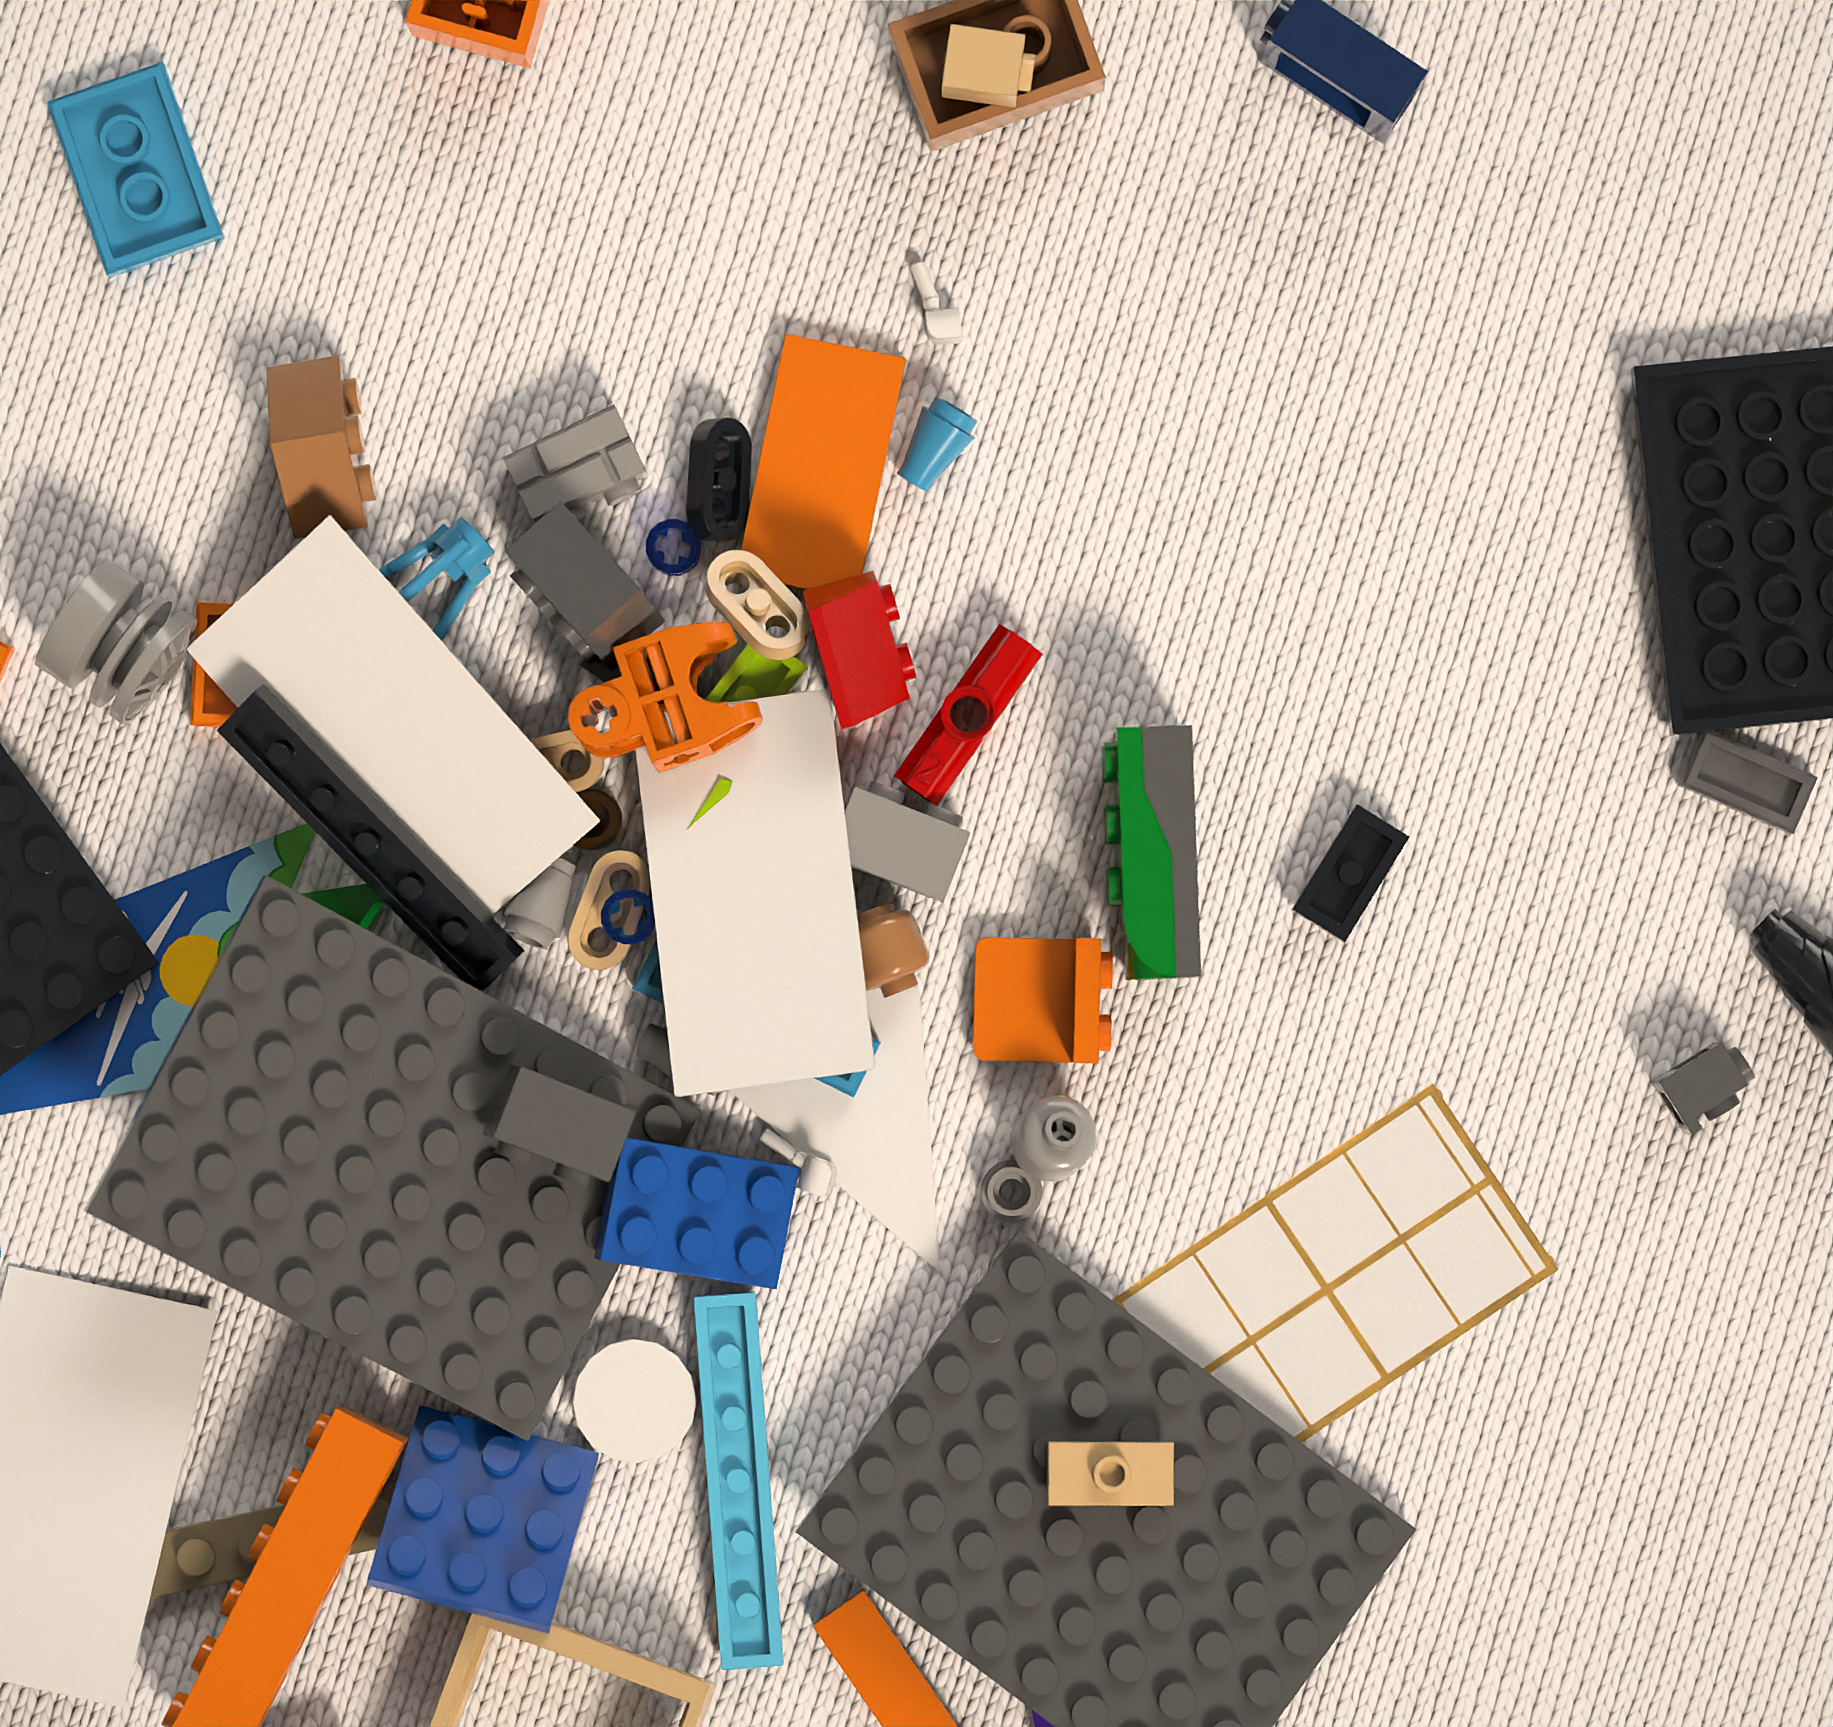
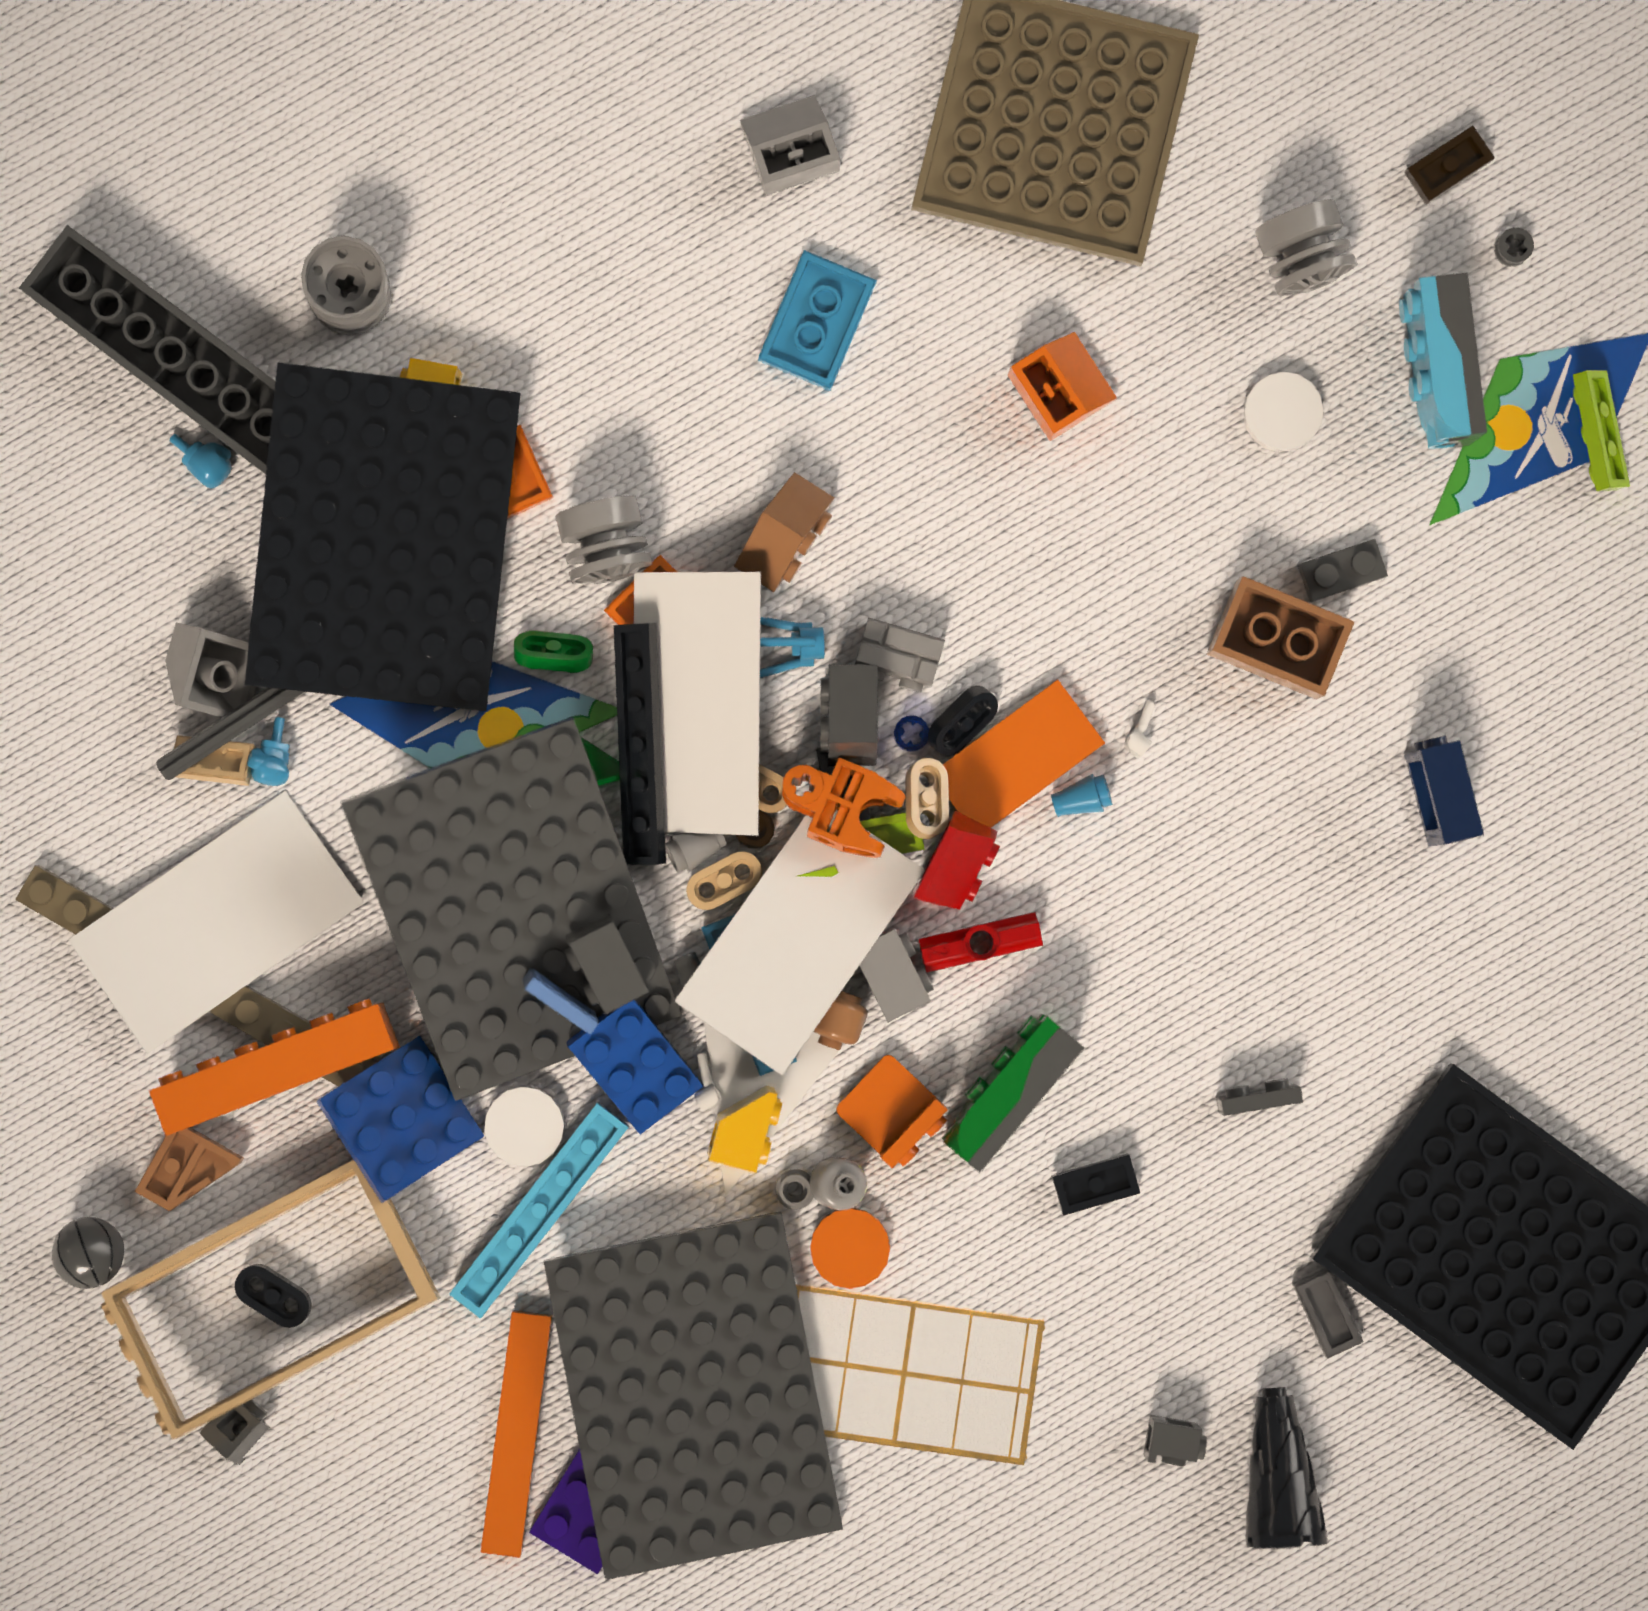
camera: 40 degrees right, 0 degrees up
(174, 824) = (553, 651): none -> green plate
(544, 1214) = (560, 1001): none -> medium blue tile
(613, 906) = (727, 881): clear blue bush -> none
(887, 1174) = (742, 1129): none -> yellow slope
(986, 66) = (1272, 640): tan brick -> none
(1110, 1473) = (719, 1371): tan plate -> none
(1135, 1201) = (850, 1248): none -> orange tile
(1429, 625) = (1276, 1094): none -> dark grey plate

